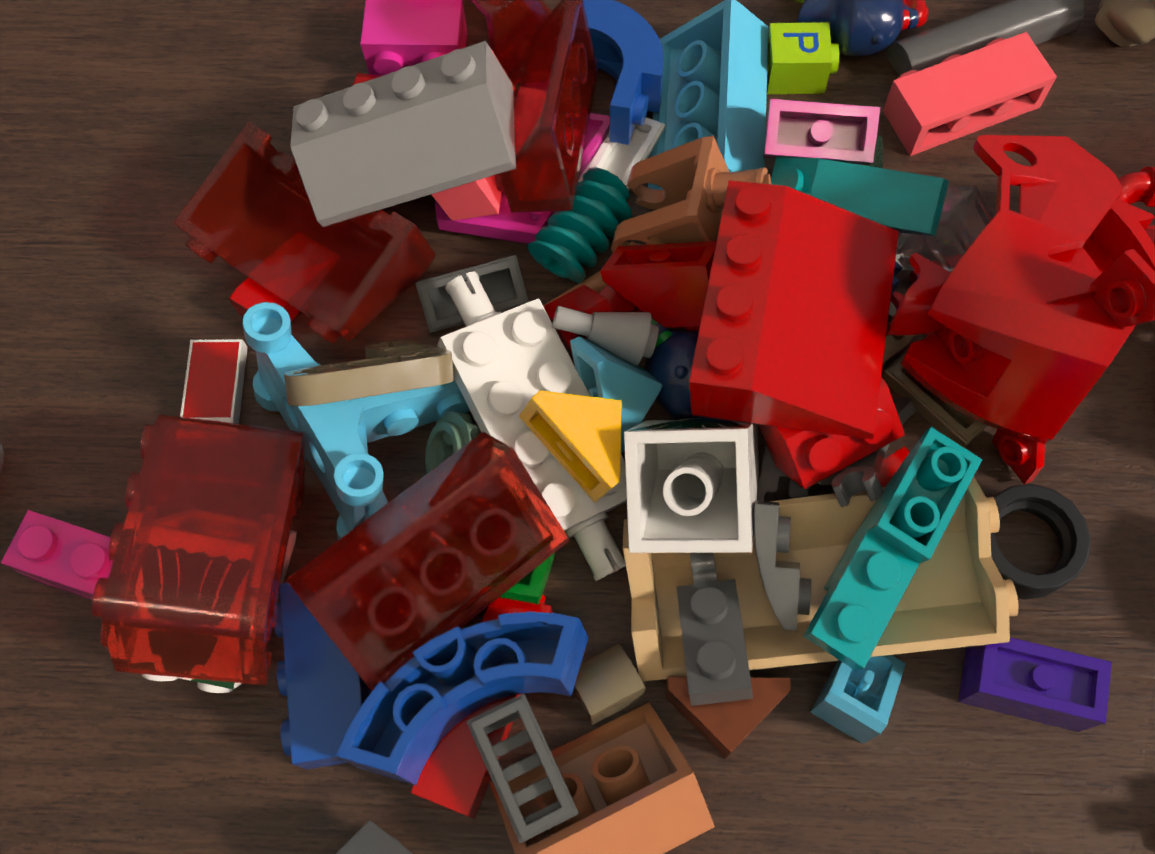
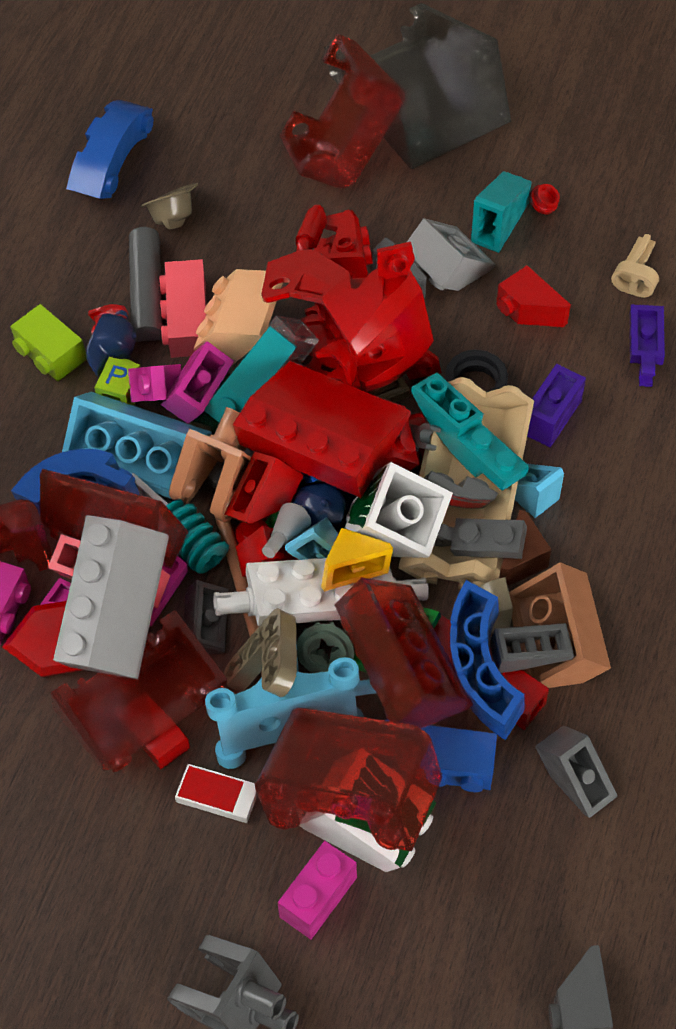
camera: 75 degrees left, 10 degrees down
(803, 76) = (152, 382): none -> dark pink brick
(944, 143) = (236, 314): none -> light nougat slope

